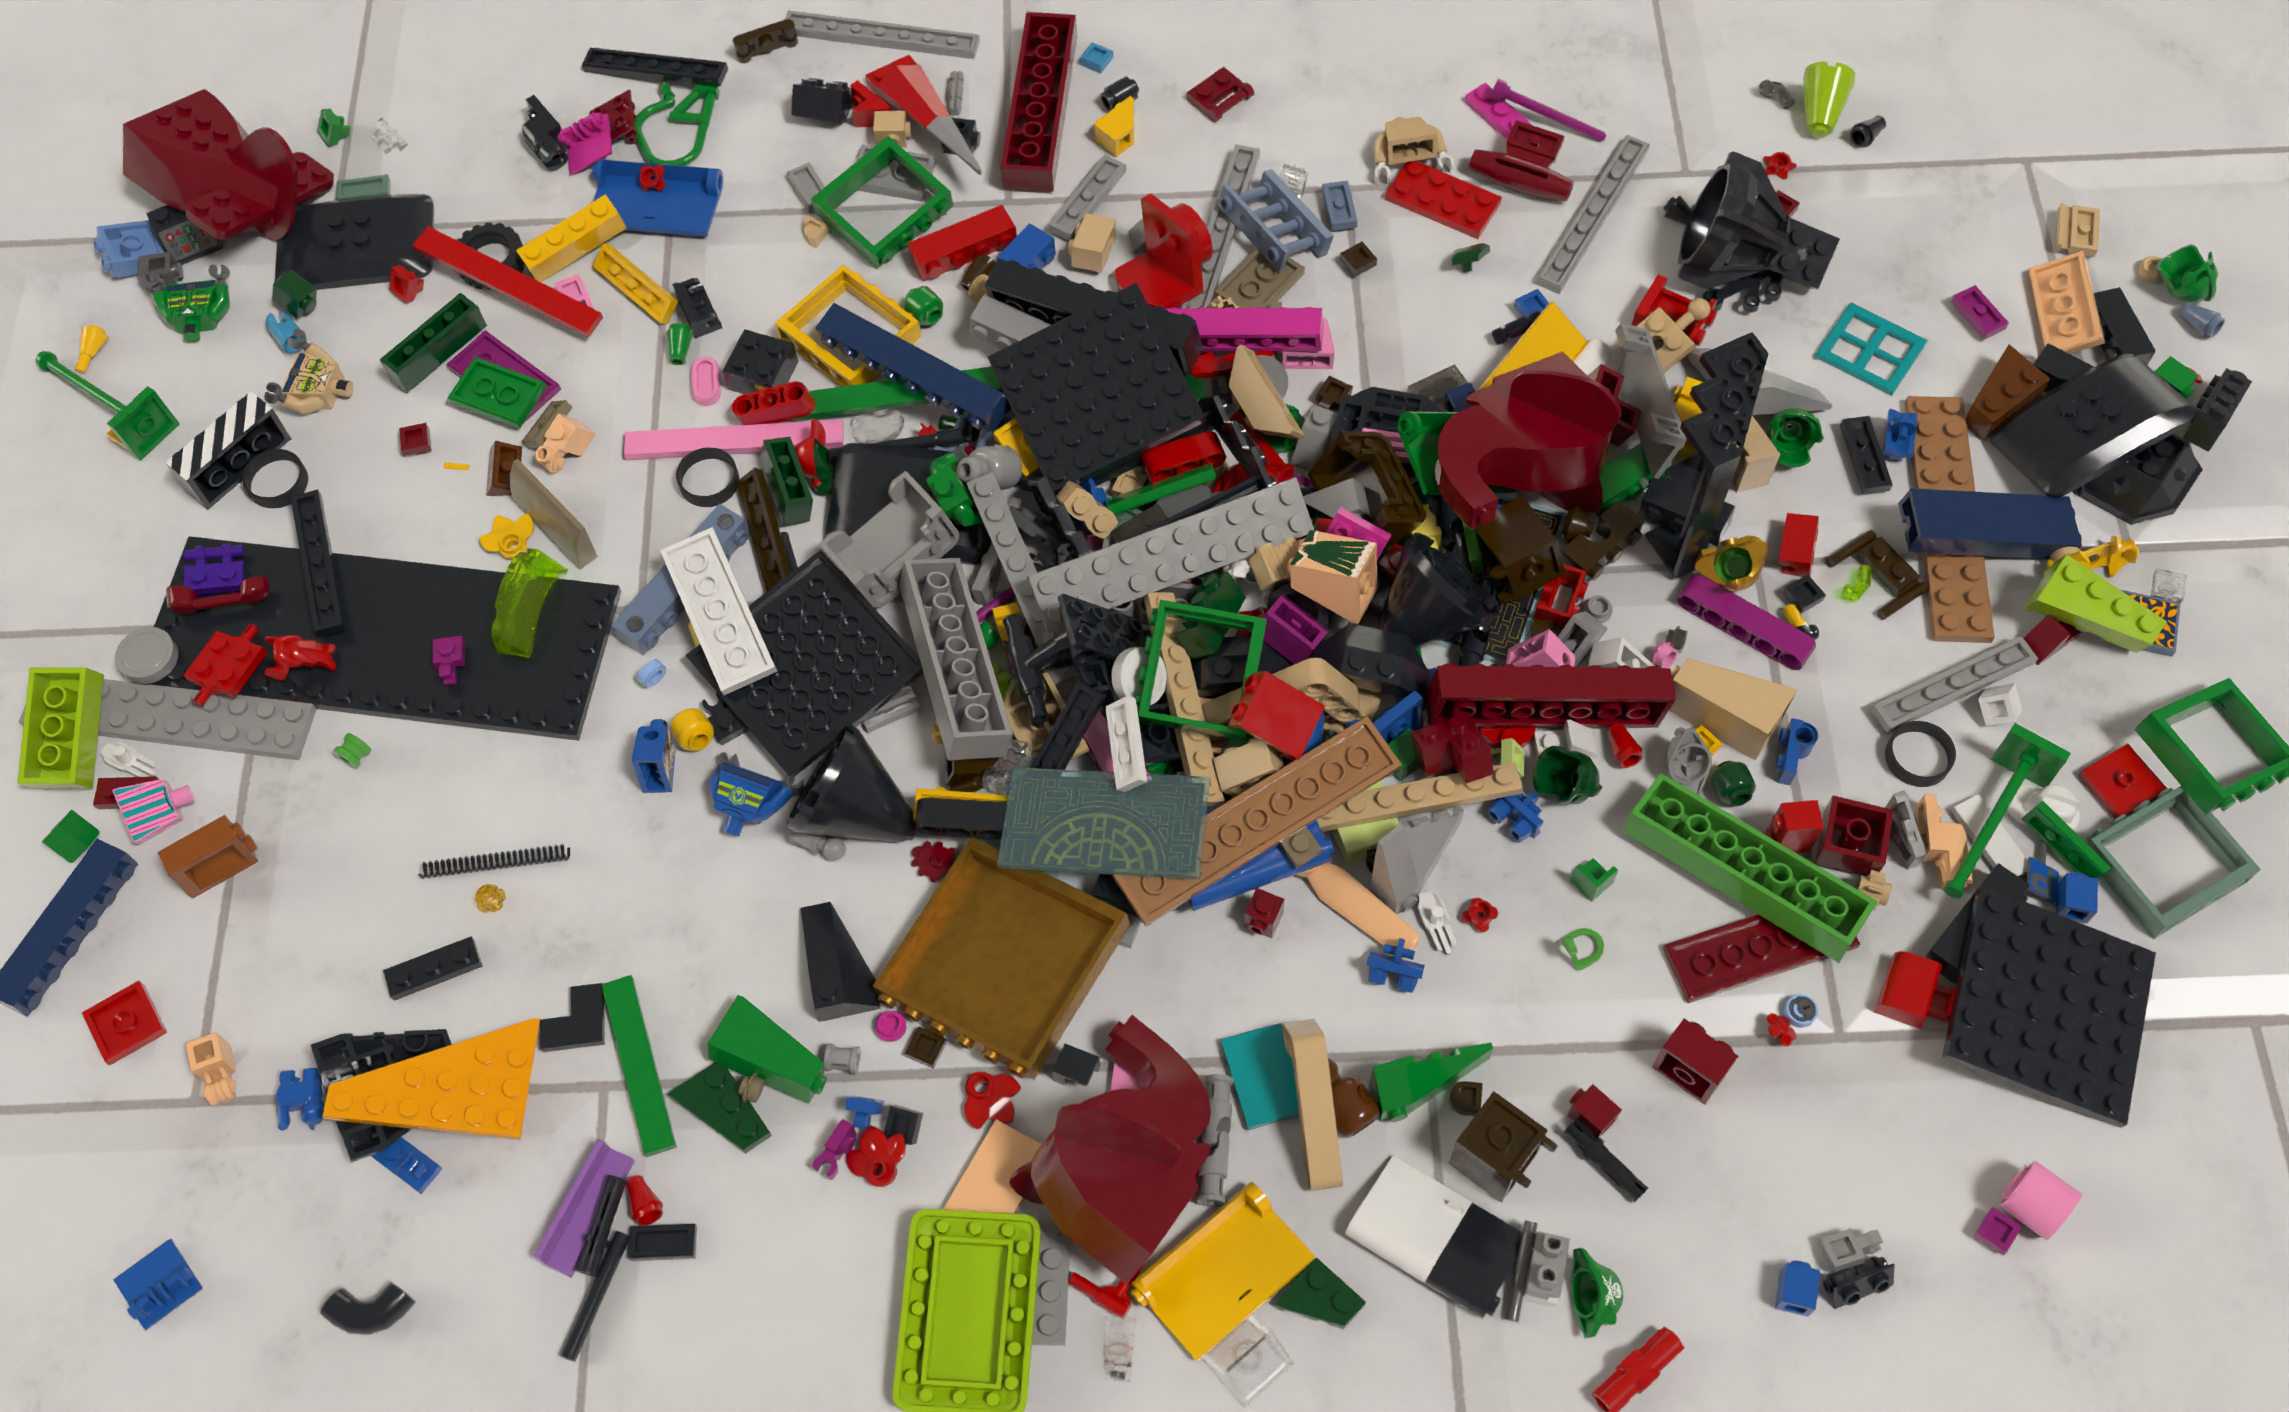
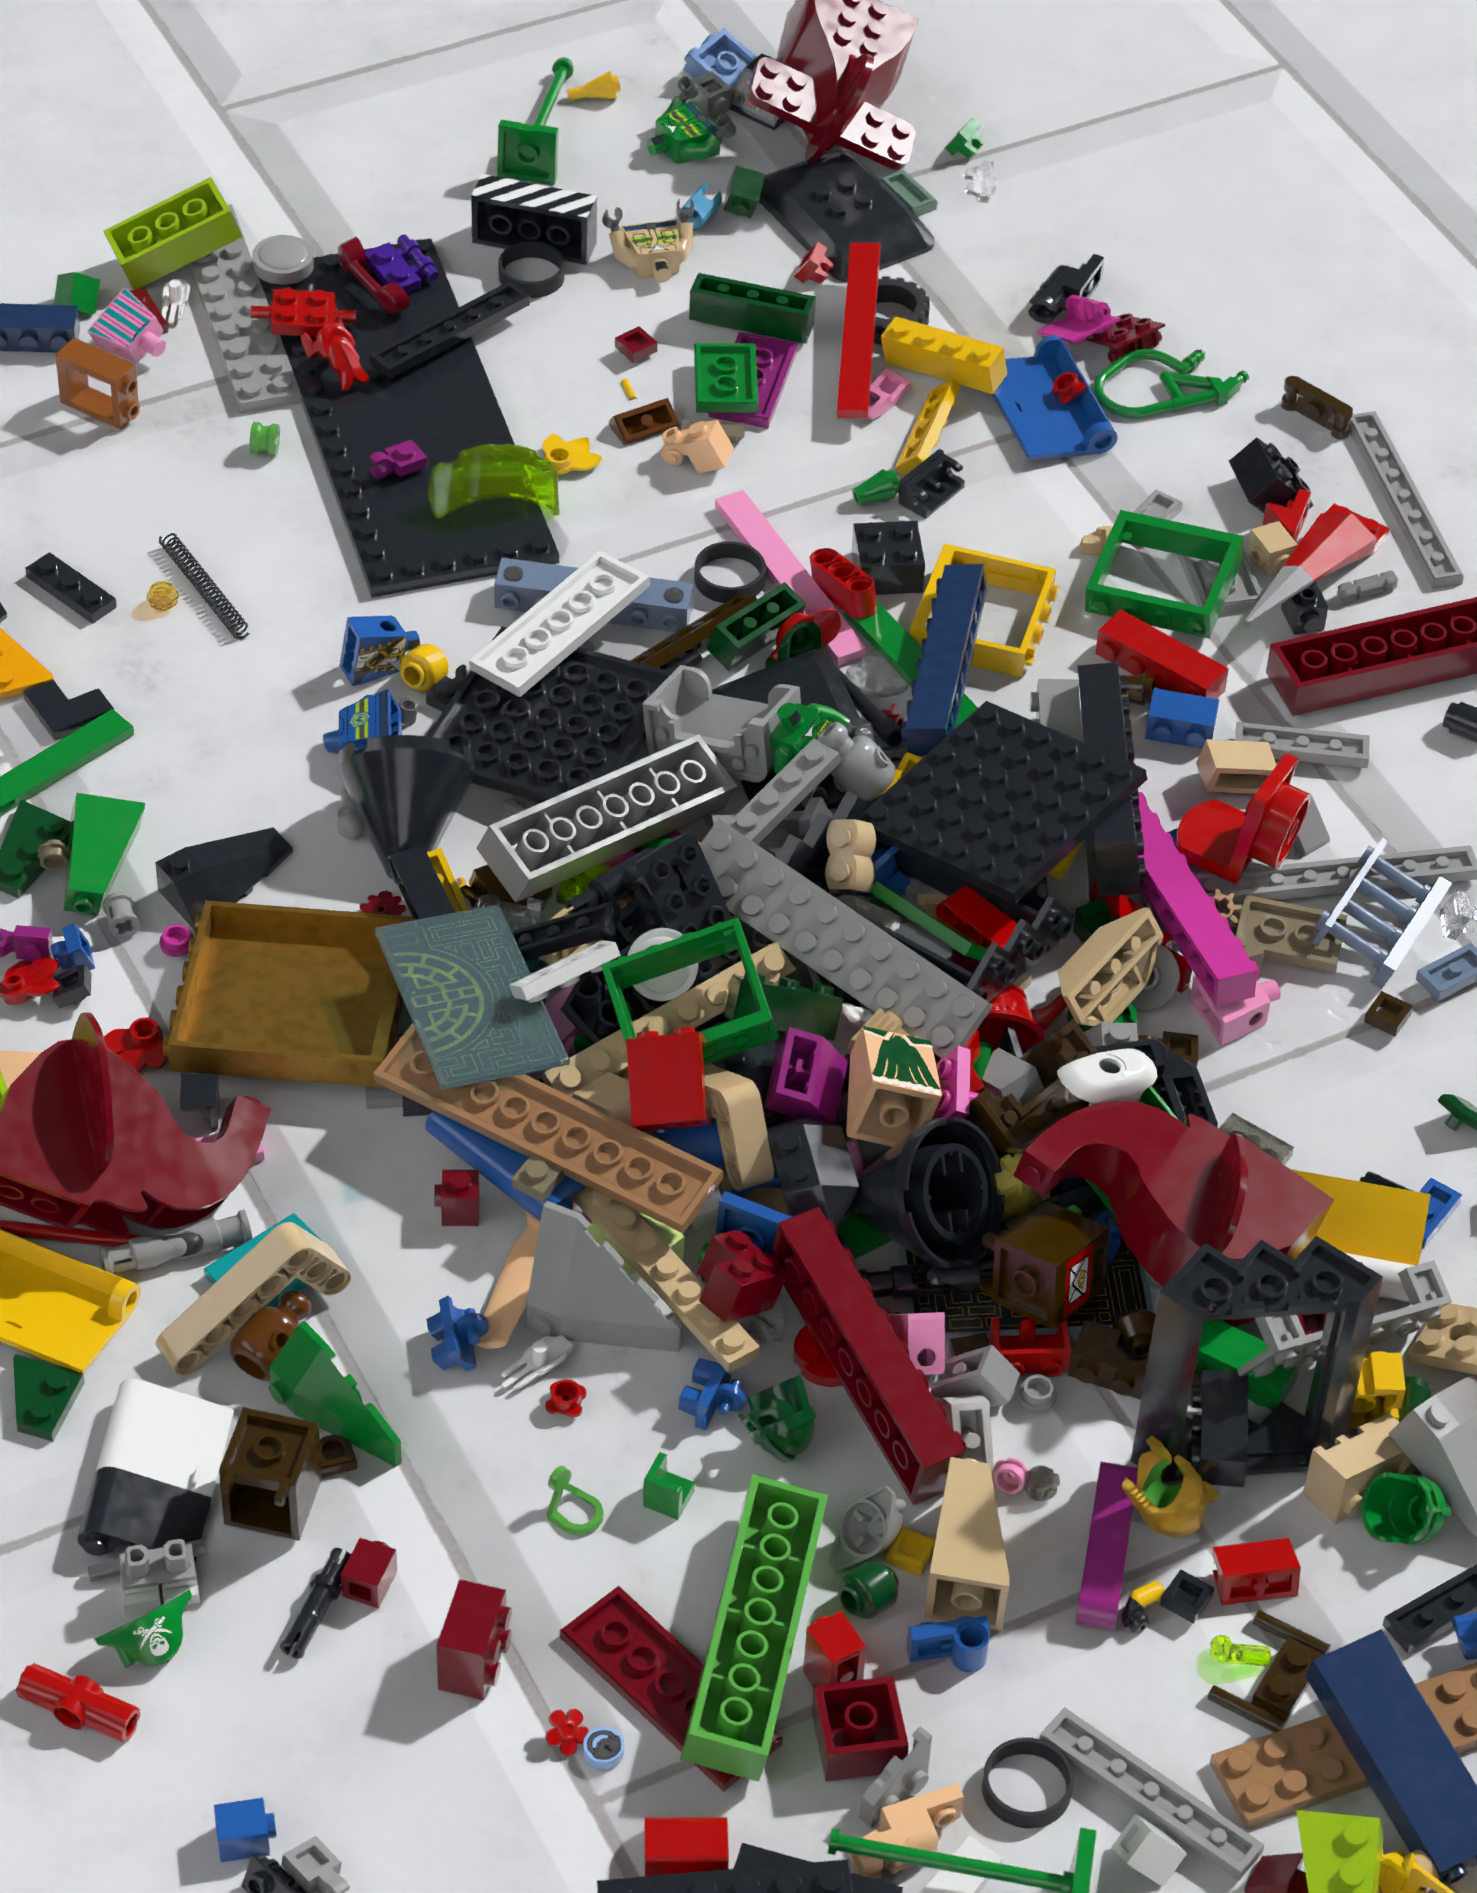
camera: 60 degrees right, 15 degrees down
(551, 516) = (604, 472): dark tan slope -> none
(651, 673) = (471, 614): light blue tile -> none
(655, 67) = (1216, 337): black tile -> none
(706, 381) = (839, 530): bright pink tile -> none
(924, 305) = (1053, 656): green head -> none
(926, 1047) = (165, 978): dark brown tile -> none
(1116, 128) = (1421, 737): yellow slope -> none
(1413, 443) = (1095, 1077): none -> white piece
(1510, 752) = (780, 1363): yellowish green tile -> none
(1572, 737) = (838, 1416): white slope -> none
(1624, 746) = (859, 1470): red cone -> none
(1875, 886) = (799, 1772): tan gear -> none

